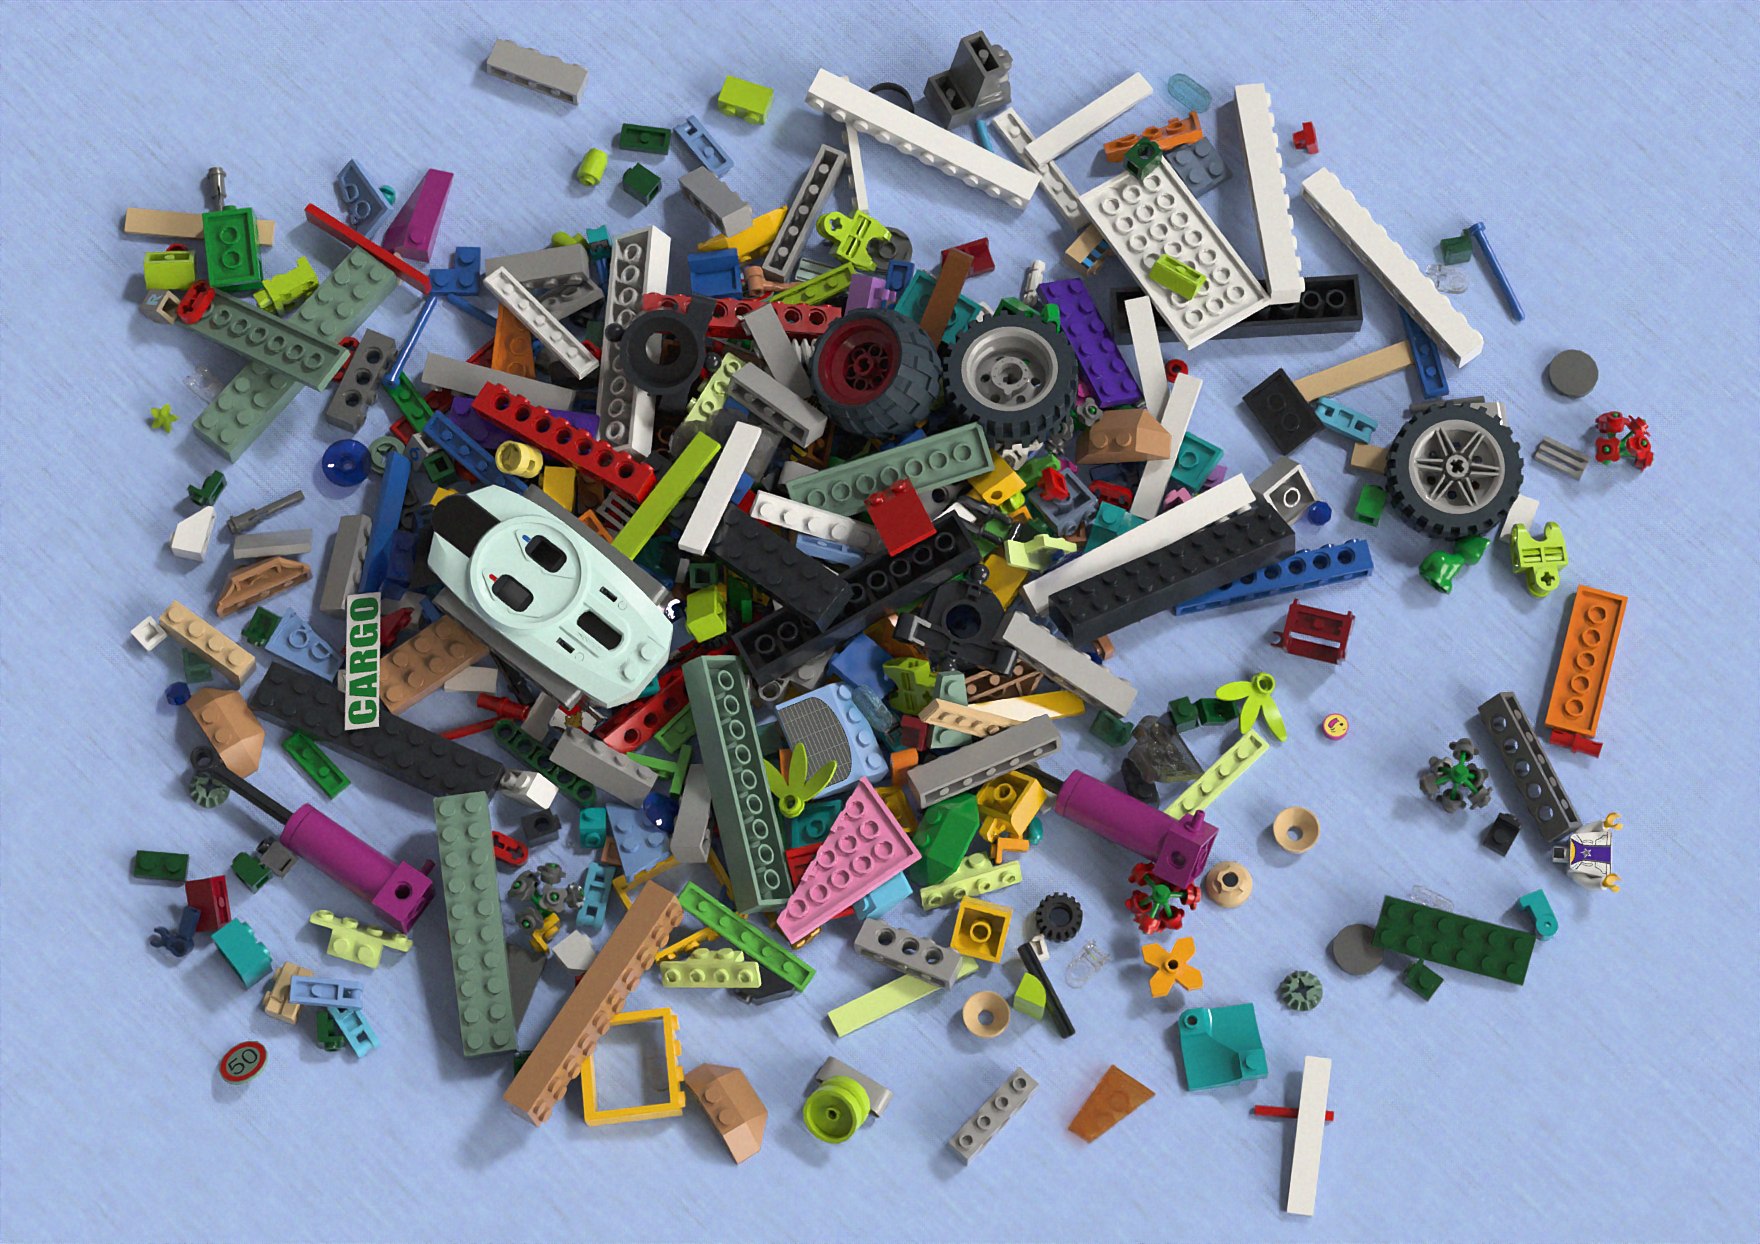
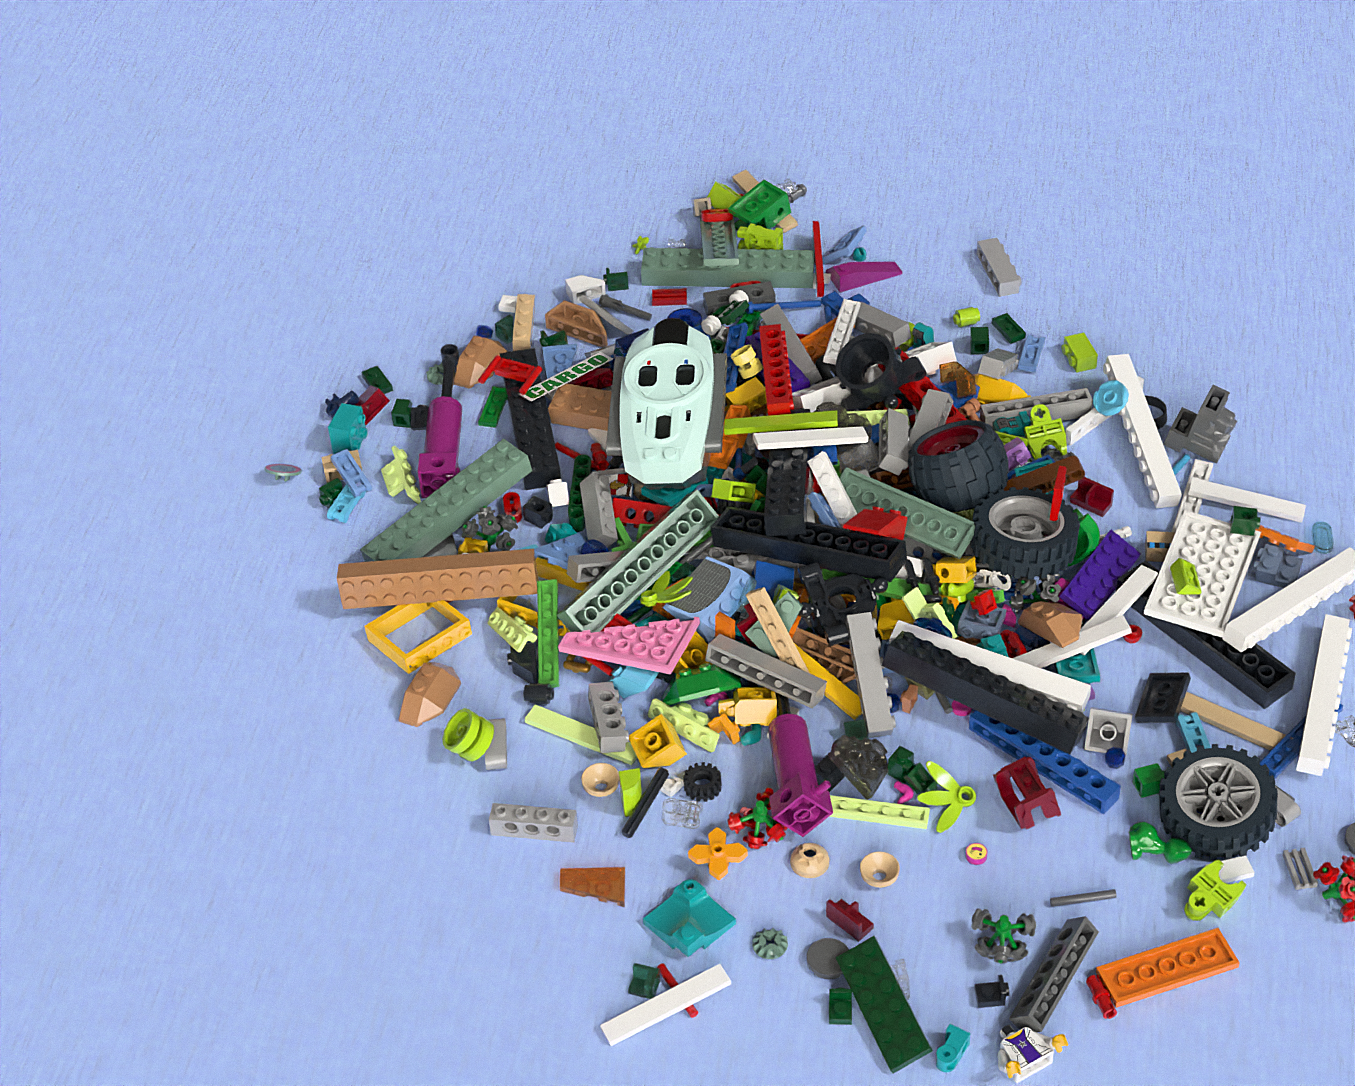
camera: 60 degrees right, 25 degrees down
(211, 190) = (788, 186): none -> clear plate
(296, 432) = (665, 297): none -> red tile
(308, 711) = (512, 370): none -> red plate
(394, 417) = (727, 313): none -> plate
(719, 256) = (964, 379): none -> clear orange tile
(809, 256) = (1013, 425): none -> teal leg
(815, 999) = (538, 693): none -> black brick
(863, 135) = (1110, 398): none -> medium azure tile
(1014, 316) = (1058, 493): none -> red tile
(1212, 733) = (905, 790): none -> dark pink animal
(1266, 1138) = (644, 981): none -> clear green panel
(1327, 898) = (849, 918): none -> dark red panel
(1455, 671) = (1085, 897): none -> dark grey bar

